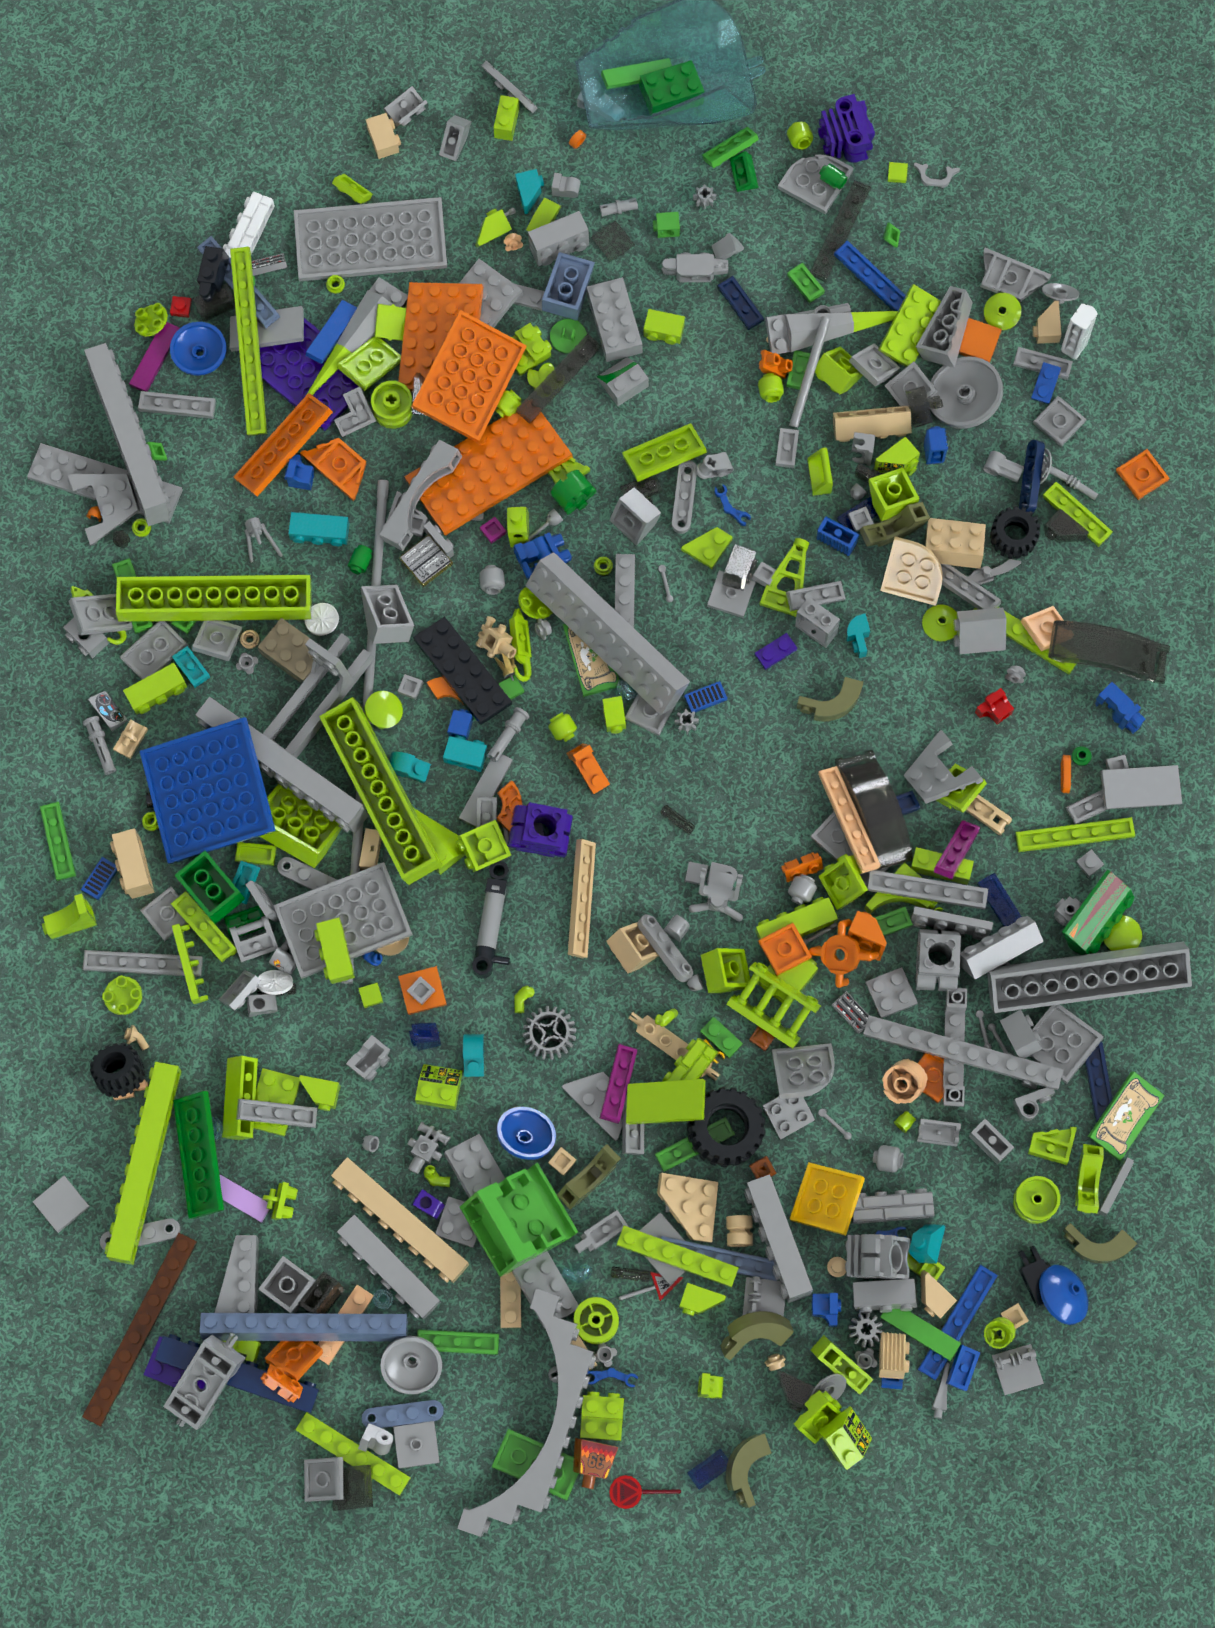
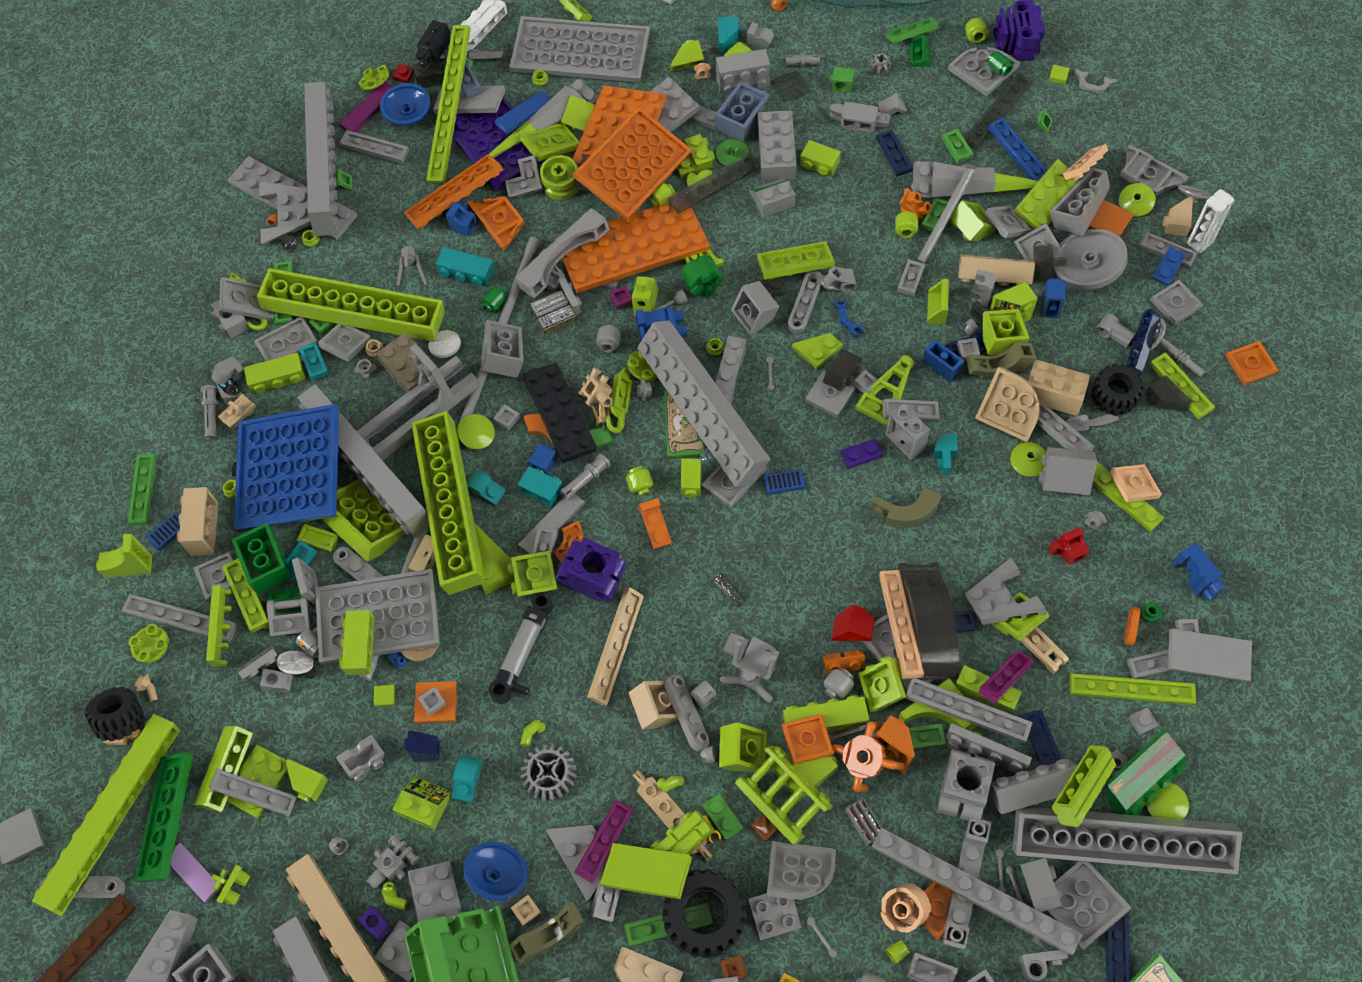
camera: 15 degrees right, 10 degrees down
(106, 694) = (226, 370): none -> light grey leg
(686, 727) = (759, 504): light grey gear -> none
(804, 829) = (853, 625): none -> red slope
(891, 993) = (909, 810): light grey plate -> none
(943, 281) = (1085, 162): none -> light nougat plate
(1043, 938) = (1084, 786): none -> lime brick
(1108, 649) = (1196, 513): clear smoke windscreen -> none

